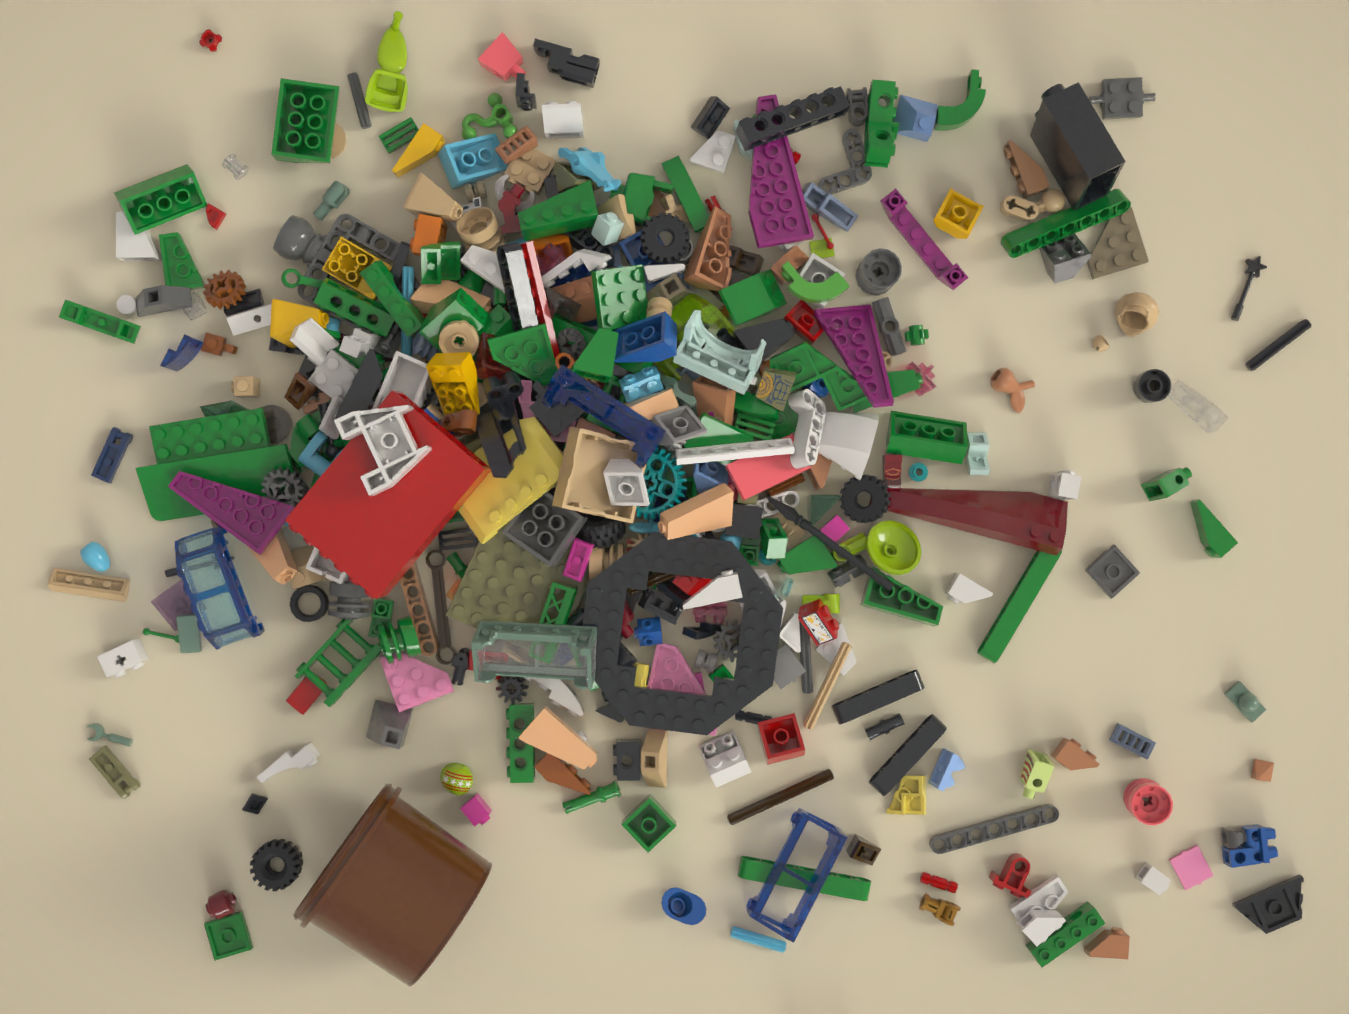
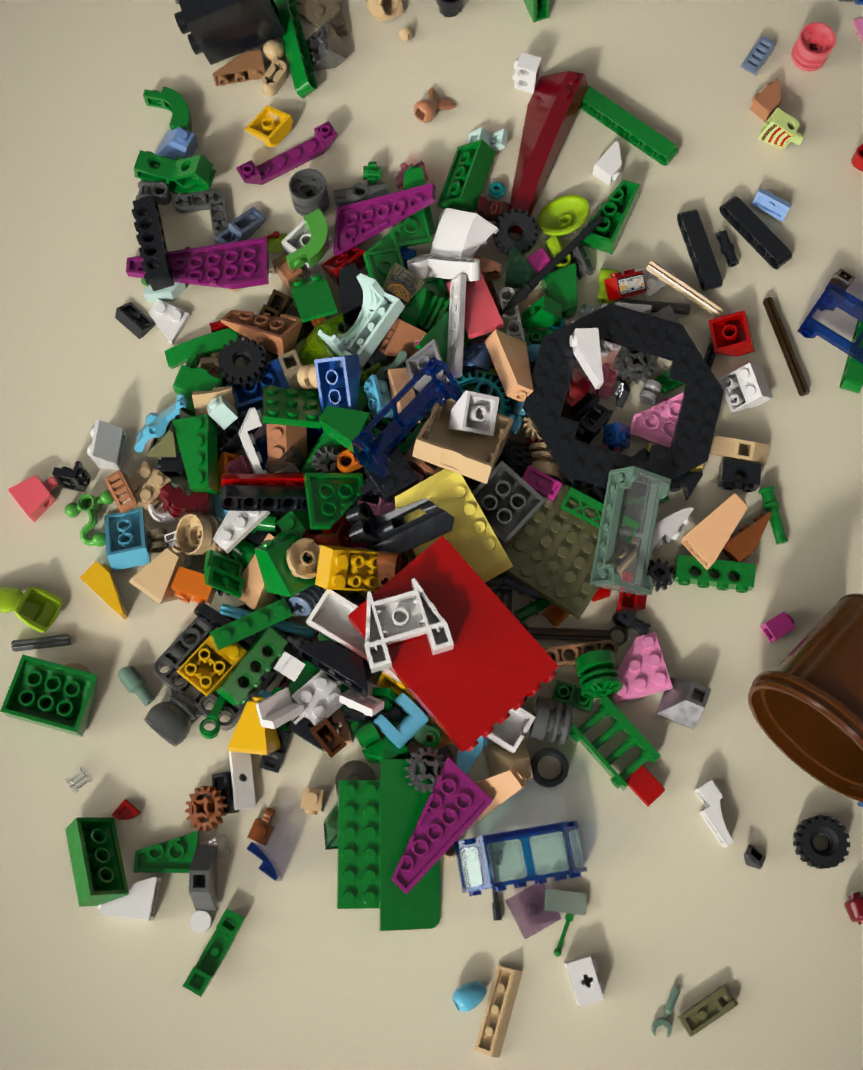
camera: 80 degrees left, 15 degrees down
(111, 455) = (361, 962): dark blue plate -> none
(397, 128) = (78, 610): green tile -> none
(456, 778) = (745, 640): lime helmet -> none
(569, 67) = (54, 438): black plate -> none
(649, 823) = (803, 462): green brick -> none
(658, 272) = (273, 373): white slope -> none
(745, 521) = (525, 332): black piece -> none
(910, 796) = (794, 236): light yellow slope -> none
(1022, 825) = (825, 180): dark grey beam -> none
(1112, 571) = (607, 51): dark grey plate -> none

